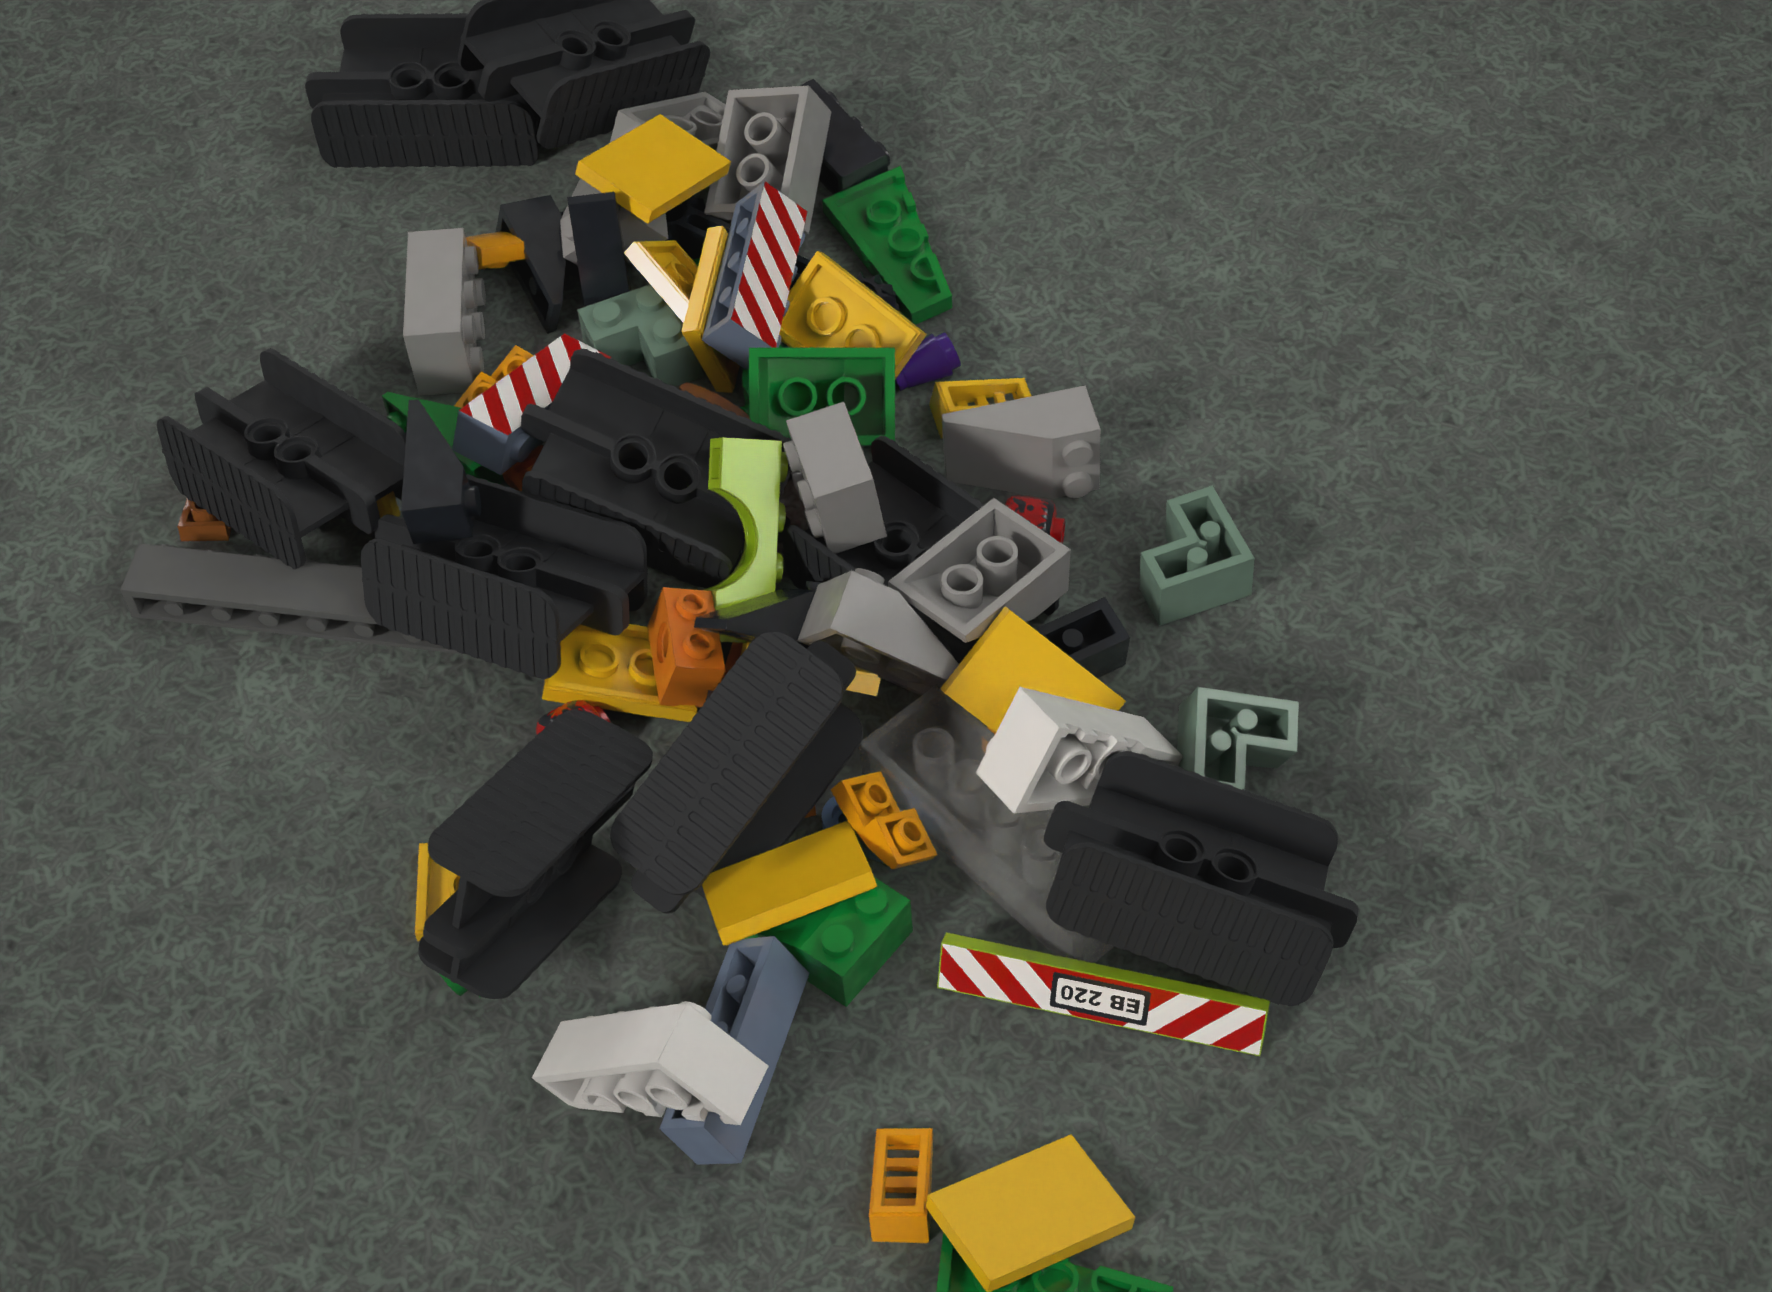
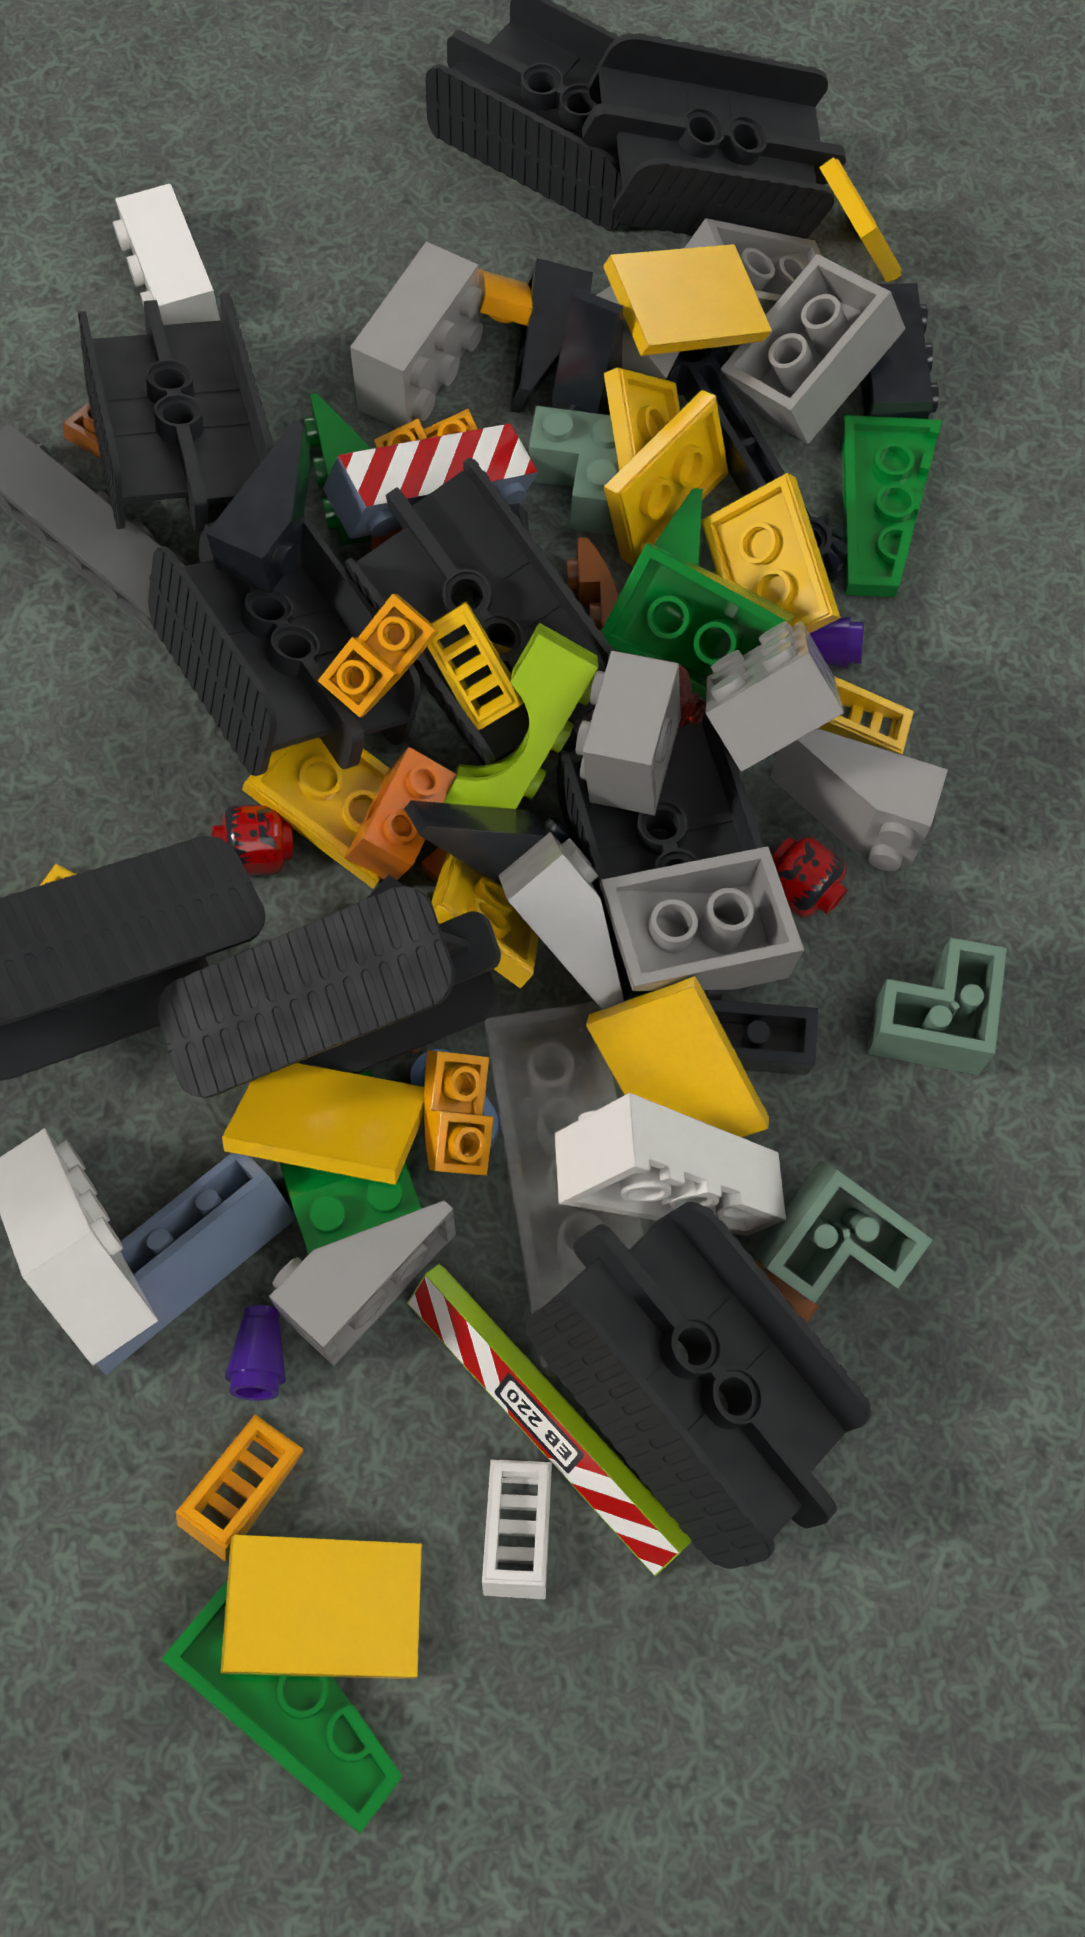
camera: 25 degrees right, 15 degrees up
(172, 359) = (164, 256): none -> white brick
(599, 527) = (378, 656): none -> light orange slope
(644, 467) = (466, 696): none -> yellow slope
(737, 55) = (861, 219): none -> yellow tile
(755, 274) = (715, 465): brick -> none
(850, 1085) = (257, 1356): none -> dark purple cone
(889, 977) = (353, 1281): none -> light grey slope
(921, 394) = (771, 694): none -> light grey brick
(1154, 1113) = (511, 1582): none -> white slope

